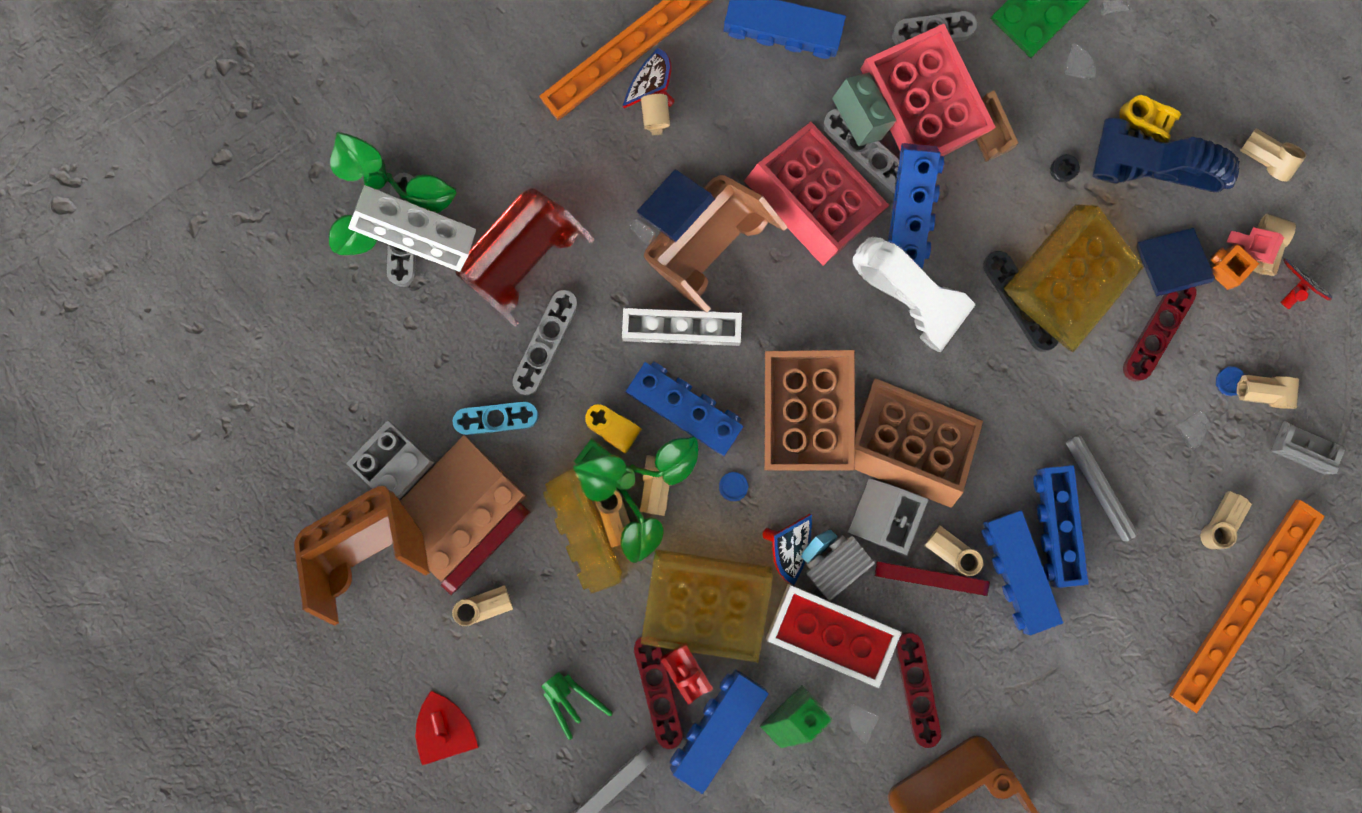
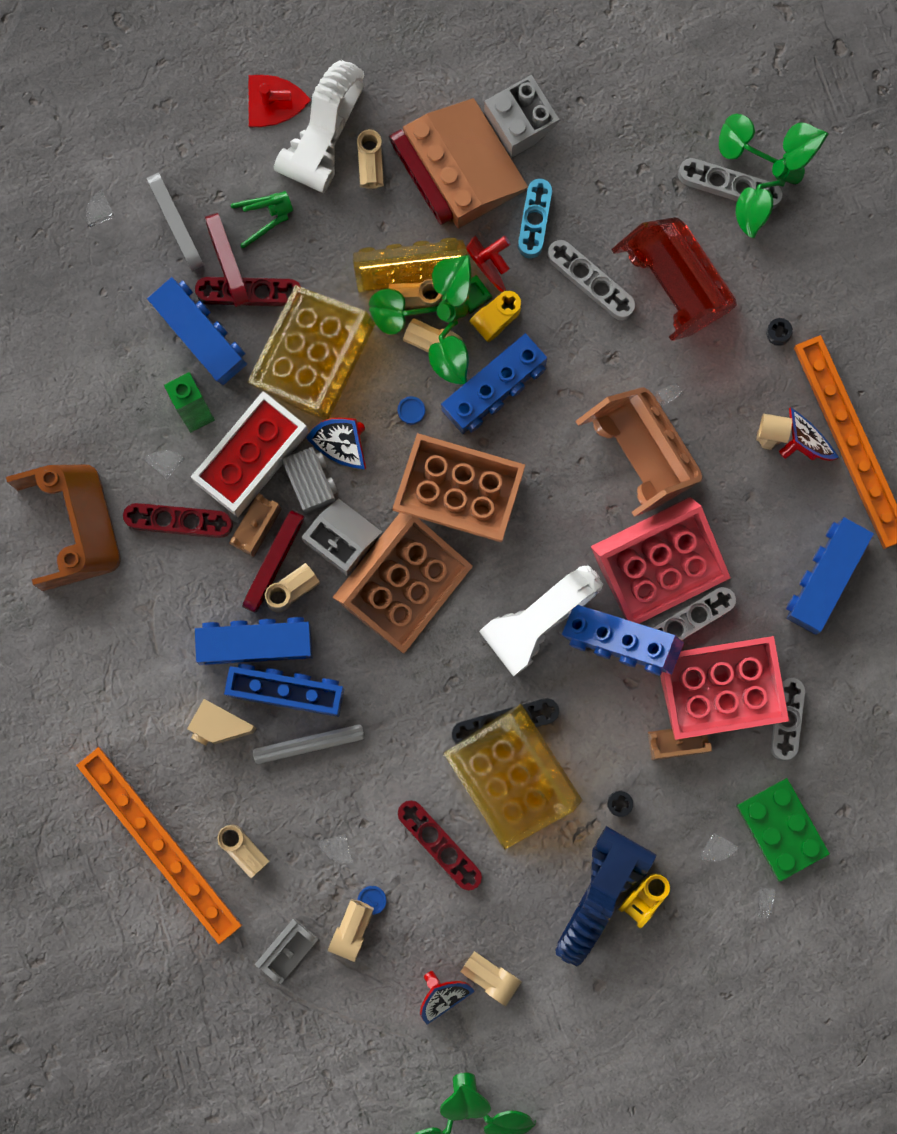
camera: 110 degrees right, 5 degrees down
(348, 537) = (464, 56): dark orange windscreen -> none
(412, 228) = (713, 190): white brick -> none
(495, 669) = (313, 157): none -> white arm
(538, 133) = (787, 328): none -> black bush
(558, 451) = (490, 259): none -> red shield
(635, 724) = (226, 260): none -> beam
(675, 205) = (684, 427): dark blue tile -> none
(681, 327) = (569, 400): white brick -> none
(686, 673) = (256, 316): red hips -> none
(818, 545) = (335, 469): medium azure tile -> none
(864, 109) = (727, 623): sand green brick -> none
(900, 609) = (255, 525): none -> medium nougat hinge
(1112, 582) = (217, 725): none -> tan slope
(1175, 262) = (500, 878): dark blue tile -> none
(1232, 266) = (481, 928): orange brick -> none
(1260, 244) = (493, 959): coral plate -> none
(1279, 158) = (571, 1012): tan piece -> none

